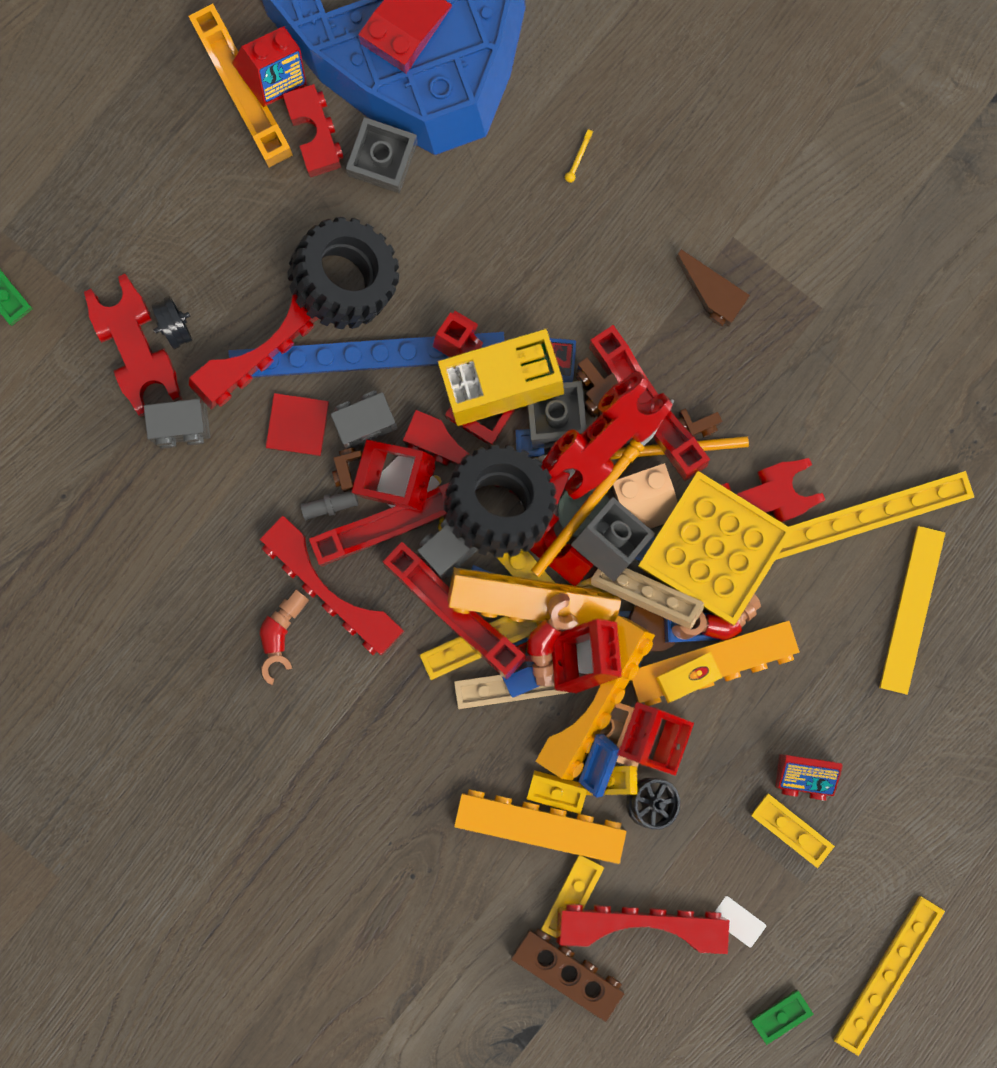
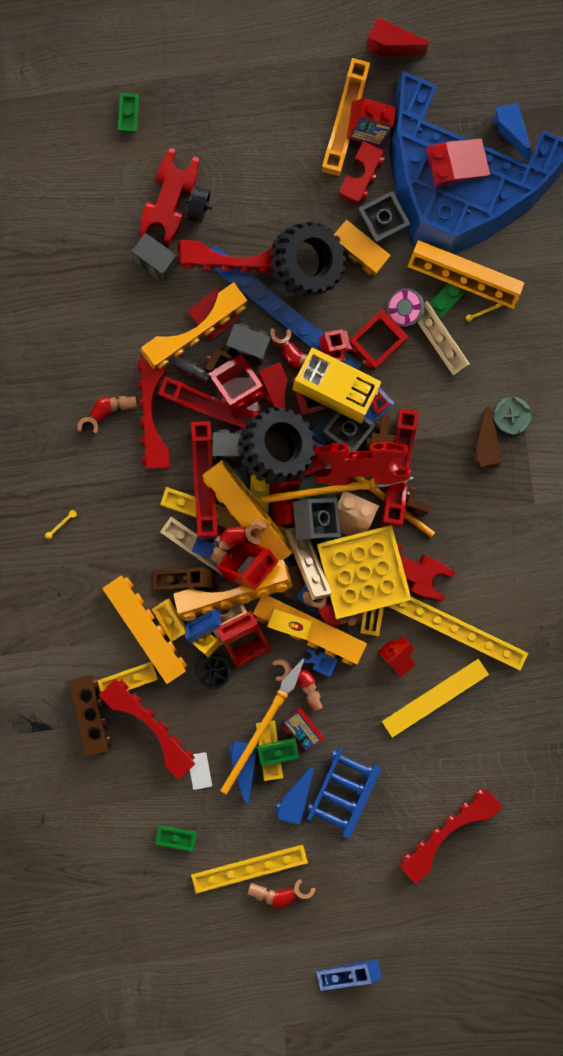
camera: 40 degrees right, 0 degrees up
(278, 512) = (161, 349): none -> light orange arch
(346, 777) = (72, 514): none -> yellow hinge
(389, 208) = (362, 248): none -> light orange brick
(417, 389) = (289, 351): none -> piece
(493, 228) = (406, 307): none -> tile
(497, 262) = (392, 327): none -> red window
(524, 134) = (466, 274): none -> light orange brick
(527, 178) = (446, 299): none -> green plate
(531, 735) = (183, 579): none -> reddish brown slope
(560, 226) = (442, 340): none -> tan plate
(712, 238) = (512, 415): none -> sand green tile
(748, 745) = (287, 686): none -> light orange piece
(759, 722) = (305, 682): none -> nougat piece
(761, 684) = (323, 663): none -> blue plate
(776, 868) = (246, 774): none -> blue slope
(778, 604) = (378, 628): none -> yellow tile
(804, 823) = (278, 752): none -> green plate
(833, 601) = (398, 655): none -> red brick
(868, 857) = (294, 801): none -> blue slope
(930, 779) = (354, 808): none -> blue fence
(951, 977) = (279, 899): none -> piece

